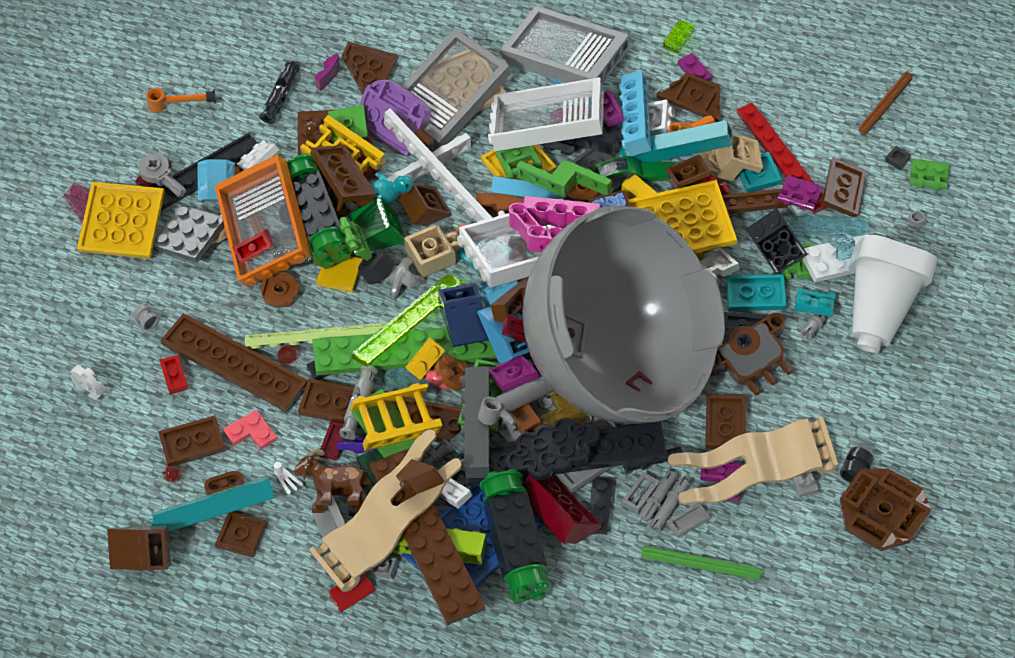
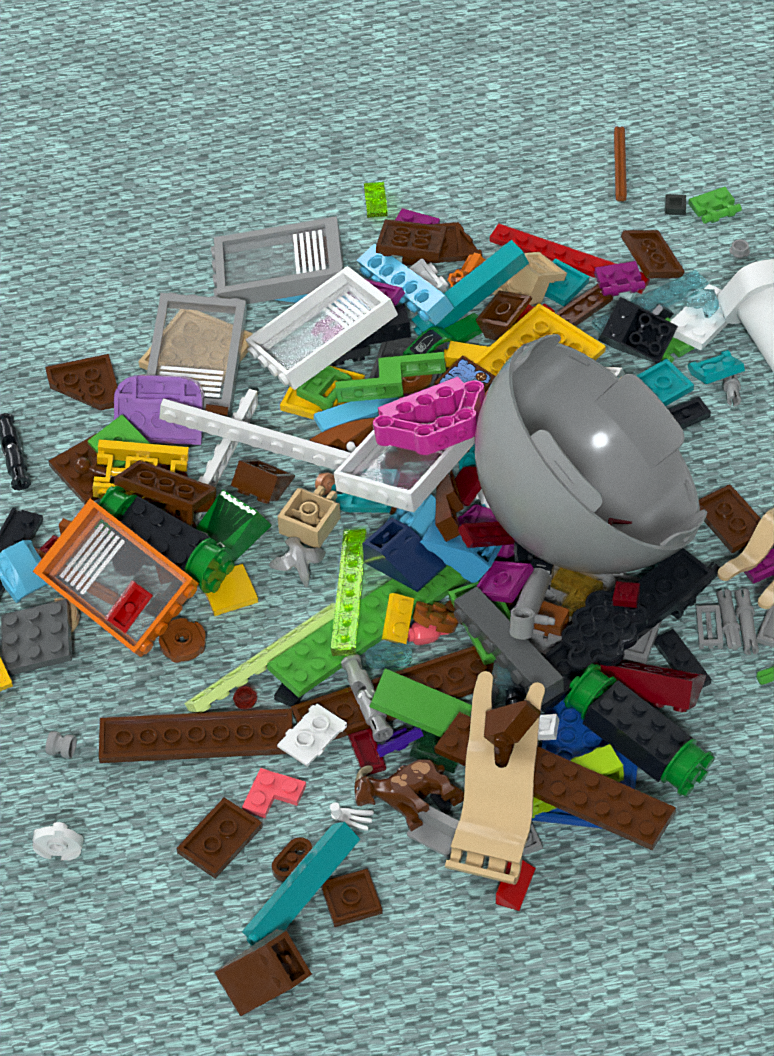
camera: 35 degrees left, 5 degrees down
(171, 474) = (226, 882): clear red plate -> none
(173, 374) = (141, 784): red plate -> none
(259, 153) = (49, 522): white plate -> none
(305, 406) = (312, 734): none -> white piece
(330, 70) = (48, 410): magenta slope -> none
(355, 238) = (231, 541): bright green plate -> none
(376, 267) = (268, 561): black tyre -> none
(389, 190) = (223, 478): teal animal -> none
(392, 434) = (434, 704): yellow fence -> none
(584, 433) = (626, 594): none -> dark red plate
(667, 81) = (411, 240): none -> reddish brown plate
(757, 357) = (709, 439): piece -> none
(810, 237) = (662, 312): none -> black tile

